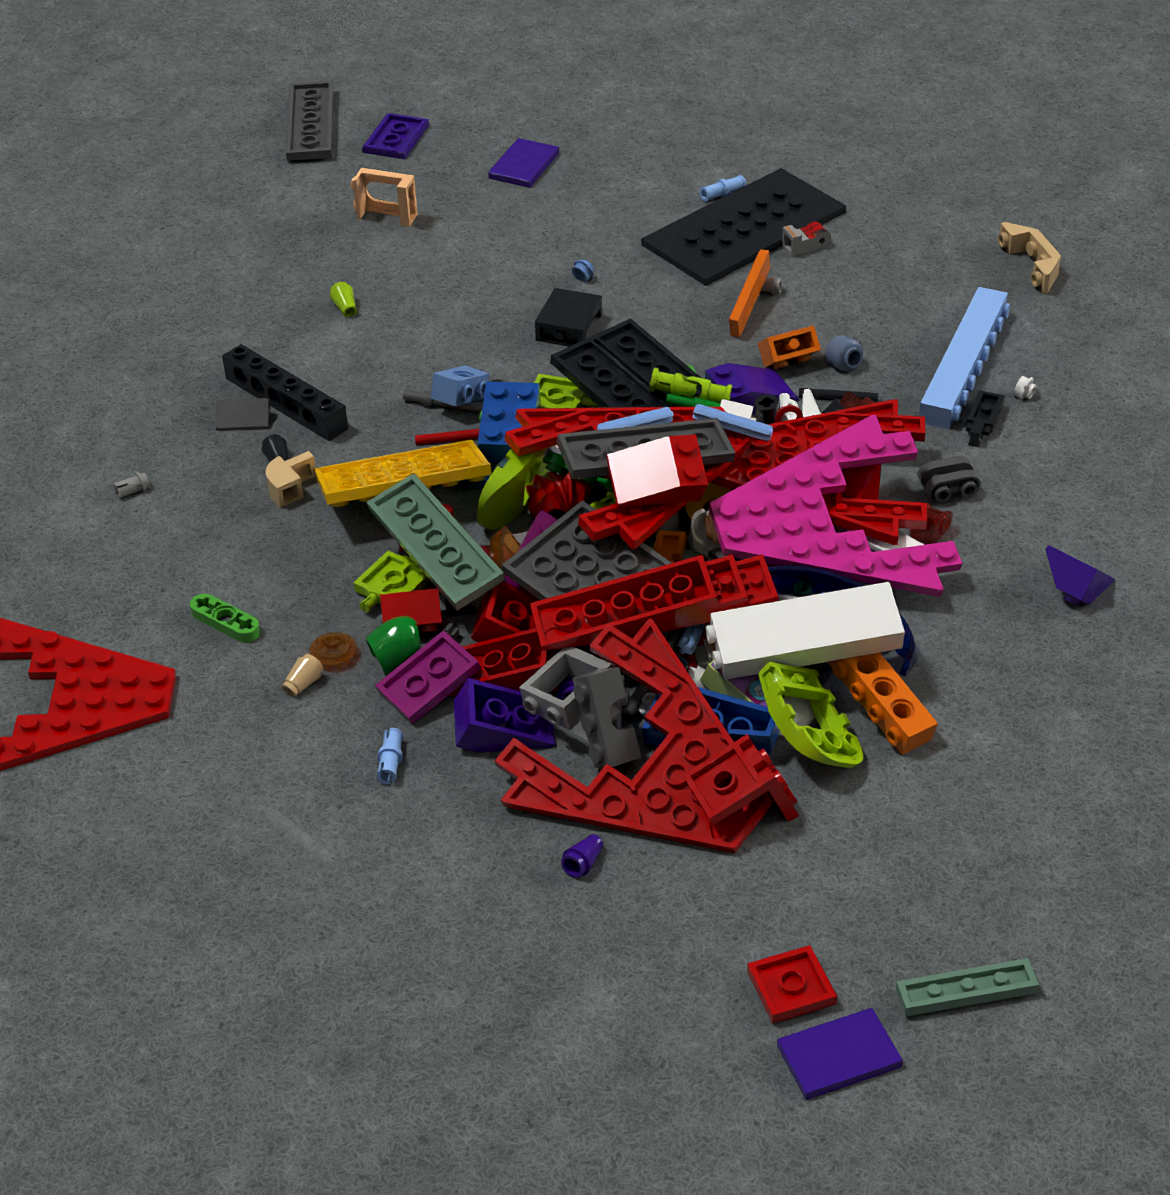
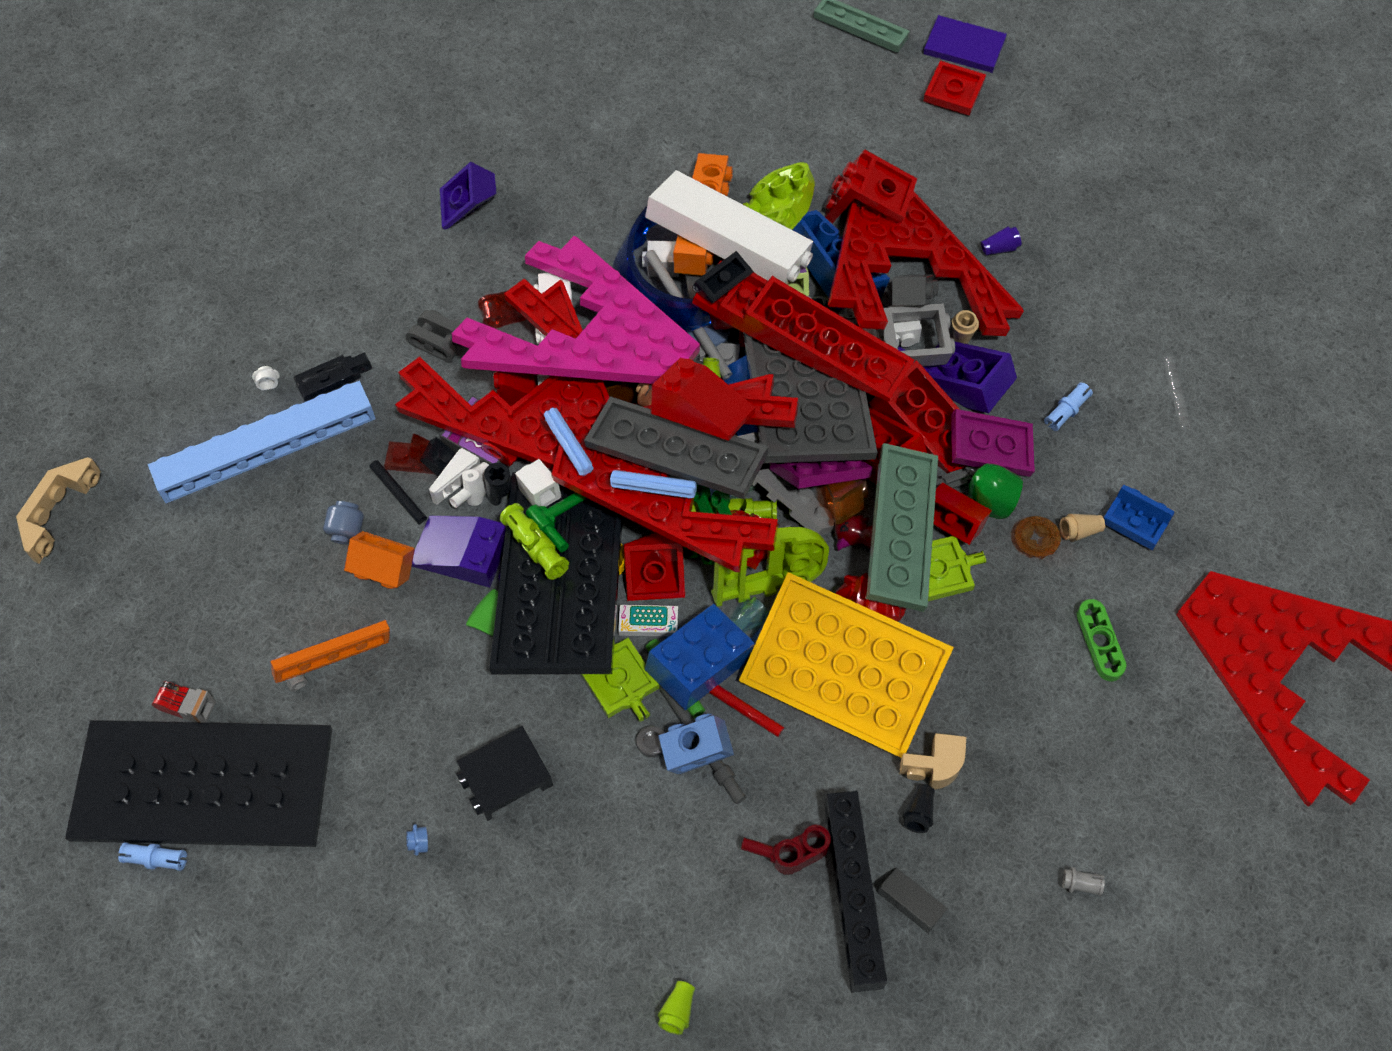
camera: 140 degrees left, 20 degrees up
(258, 706) = (1138, 517): none -> blue bracket
(343, 383) = (798, 846): none -> dark red beam
(538, 738) = (964, 326): none -> tan cone
(754, 572) = (722, 278): none -> black slope

